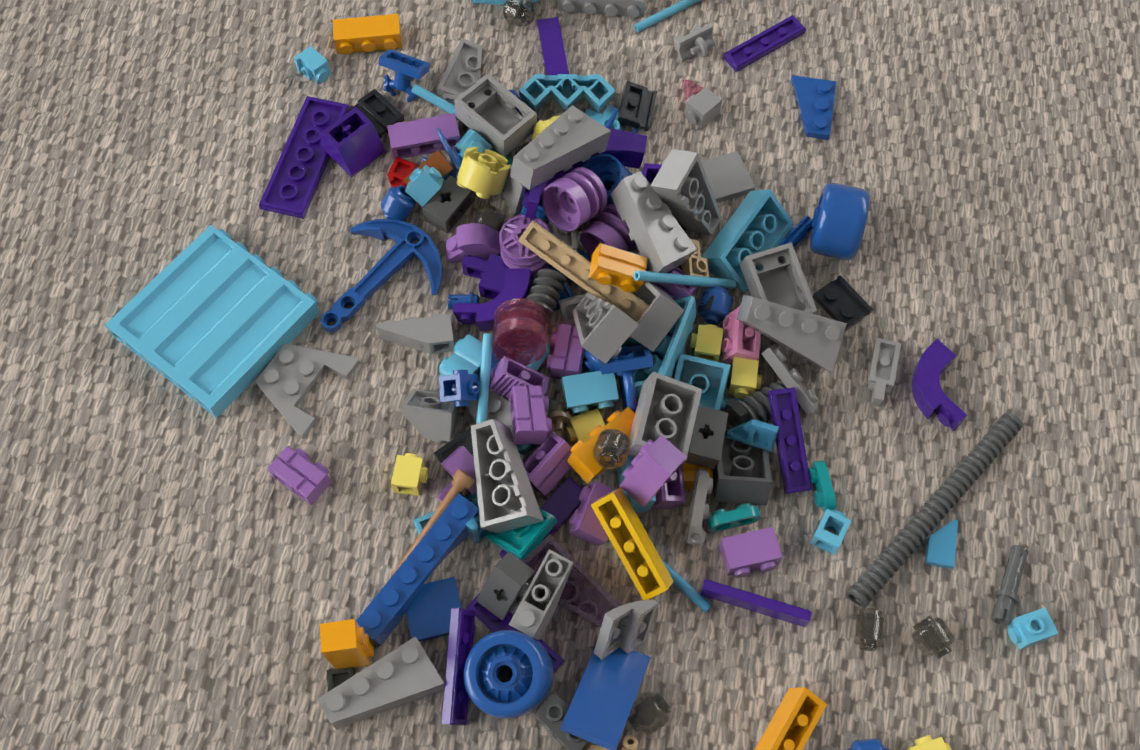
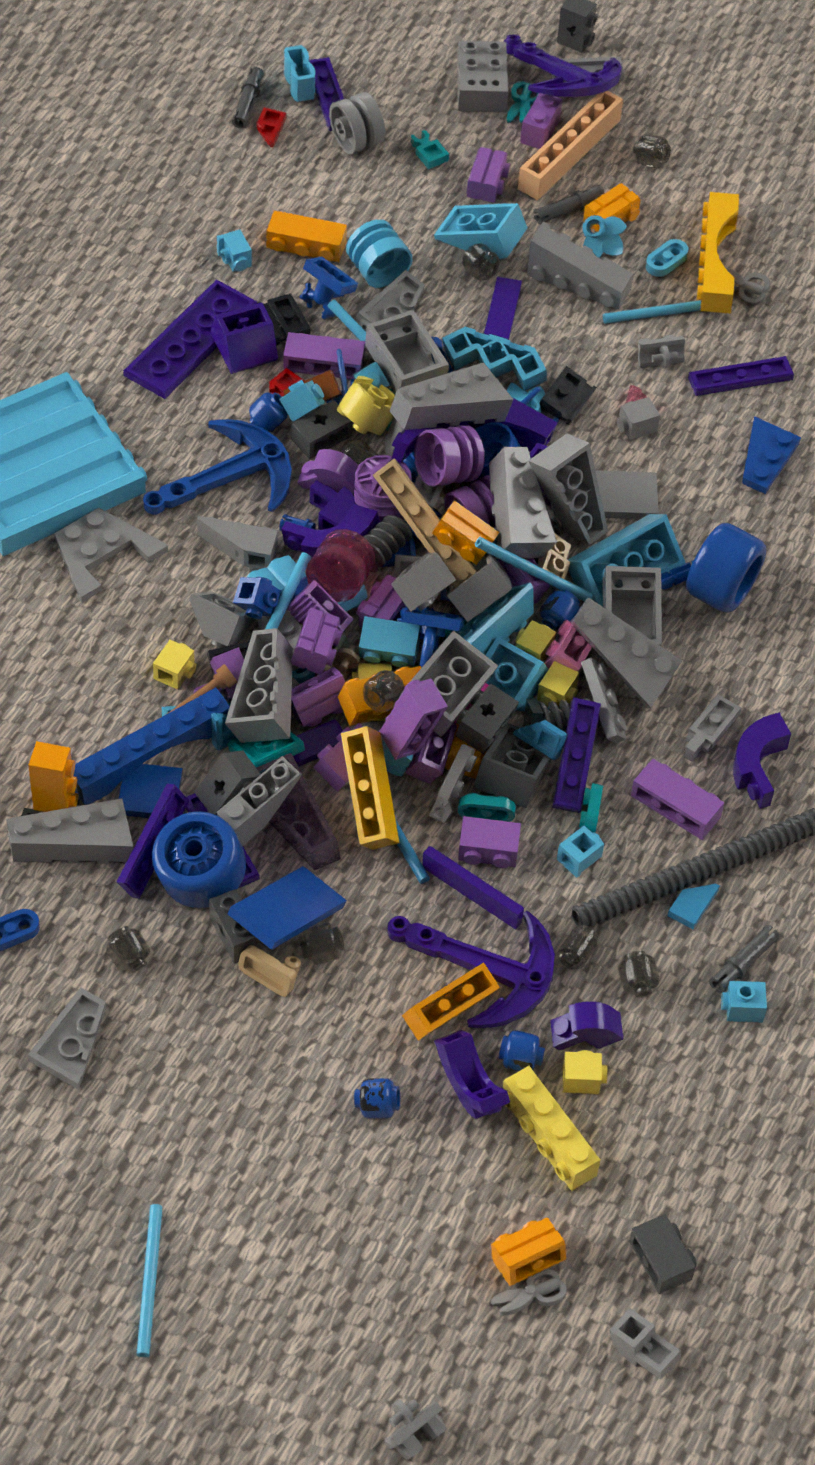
camera: 15 degrees right, 10 degrees down
(300, 474) = (66, 629): medium lavender brick -> none
(434, 30) = (378, 253): none -> medium azure wheel
(625, 627) = (330, 857): light grey slope -> none
(822, 677) = (514, 974): none -> dark purple piece
(842, 302) = (699, 653): black plate -> none
(888, 449) = (677, 798): none -> medium lavender brick
(912, 710) = (587, 1022): none -> dark purple brick

